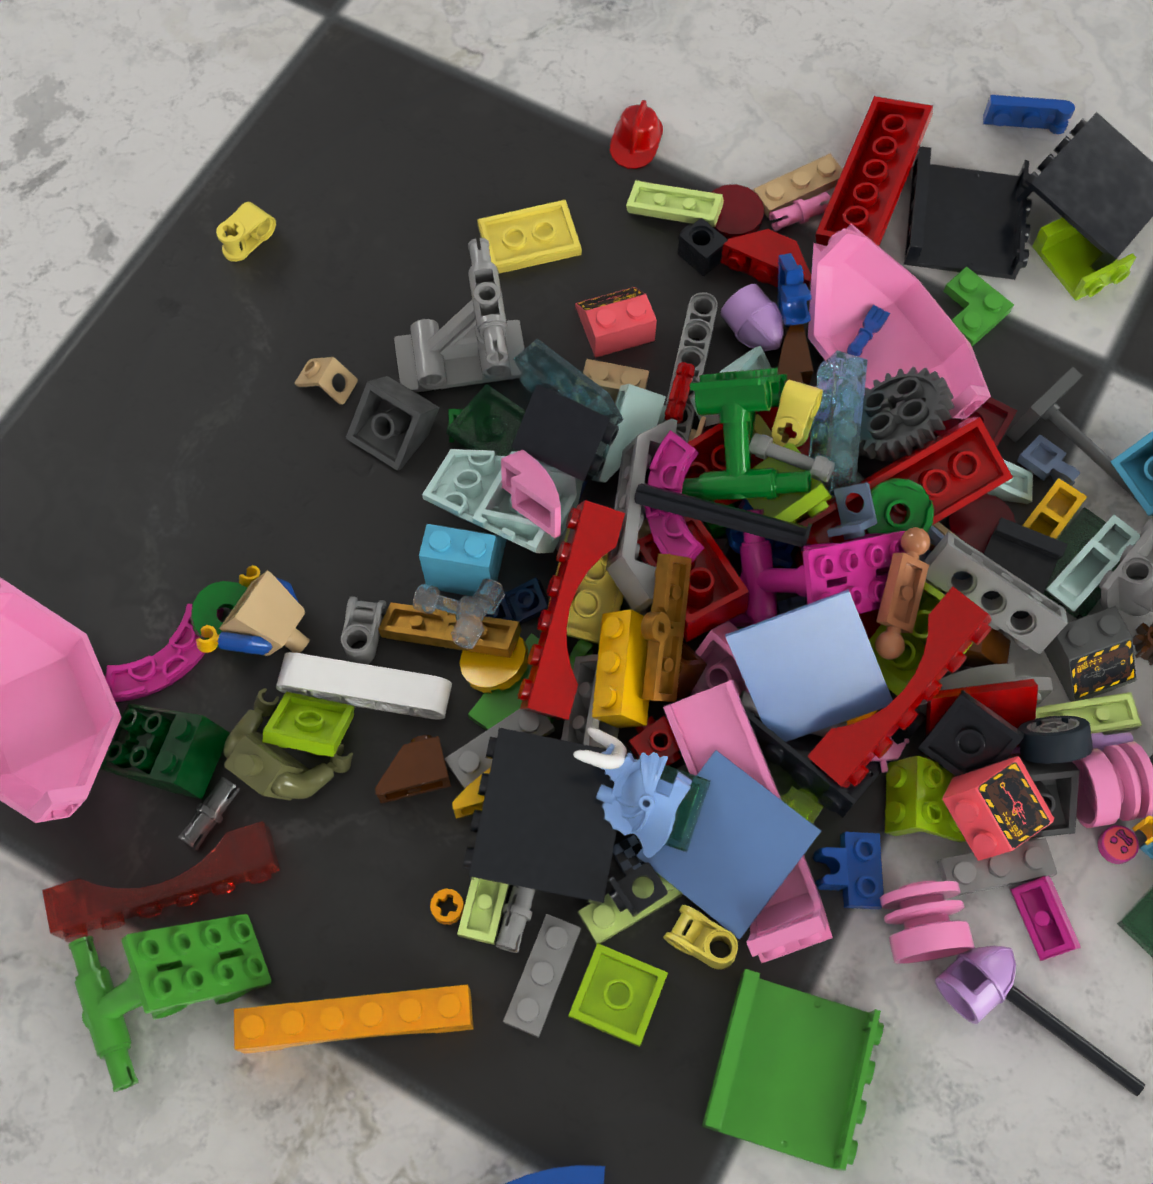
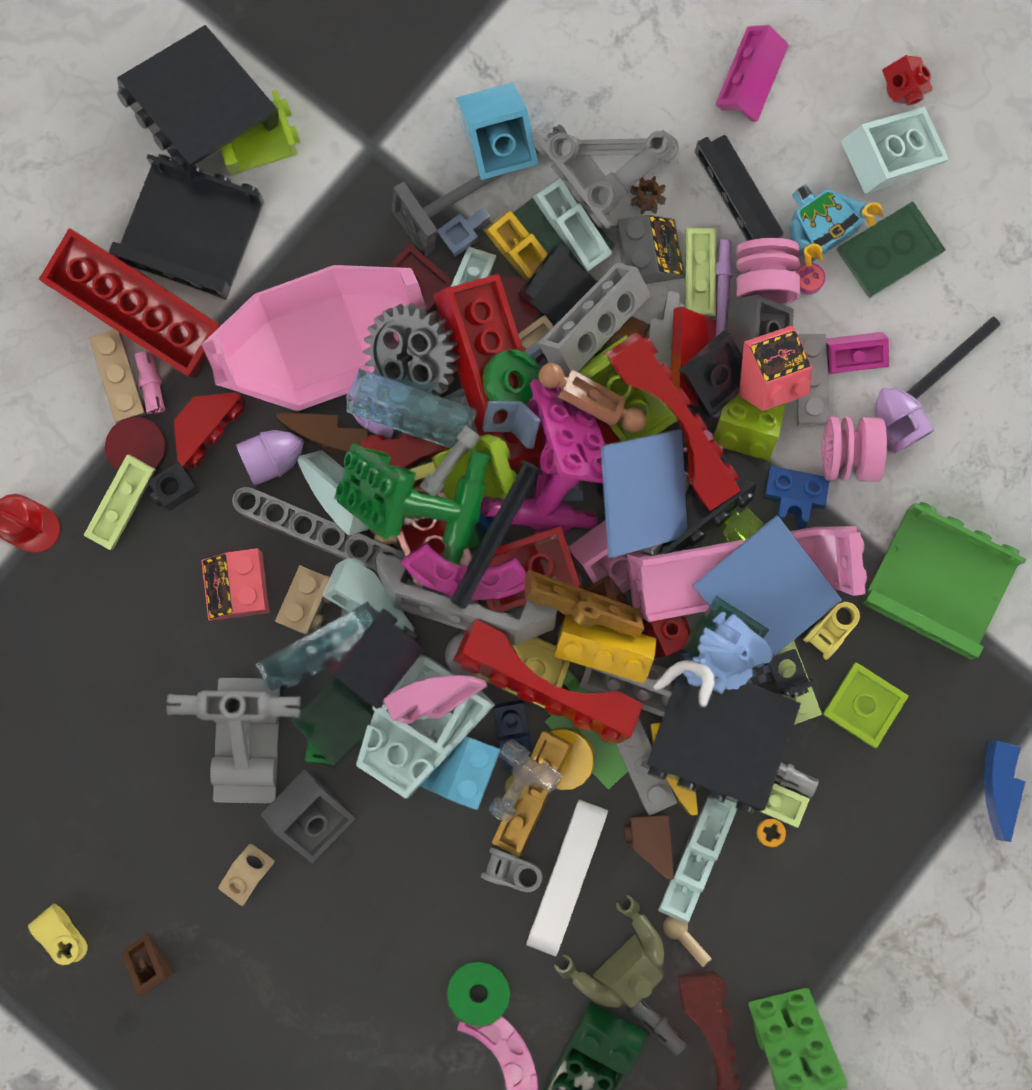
camera: 80 degrees left, 15 degrees up
(222, 308) = (146, 965): none -> reddish brown slope
(260, 620) = (491, 960): tan torso -> none
(308, 724) = (598, 930): lime plate -> none
(323, 818) = (679, 931): none -> tan bar
(352, 1018) = (856, 899): light orange arch -> none
(403, 825) = (697, 859): none -> light aqua slope
(530, 236) = (122, 651): light yellow tile -> none
(542, 975) = (838, 763): light grey plate -> none
(679, 392) = (340, 543): red axle -> none
(792, 292) = (262, 416): blue plate -> none
(796, 410) = (402, 446): light yellow piece -> none
(872, 324) = (290, 347): blue piece -> none
(981, 303) = (292, 240): bright green plate -> none
(1028, 112) = (84, 135): blue plate -> none
(1055, 739) = (727, 305): black wheel -> none

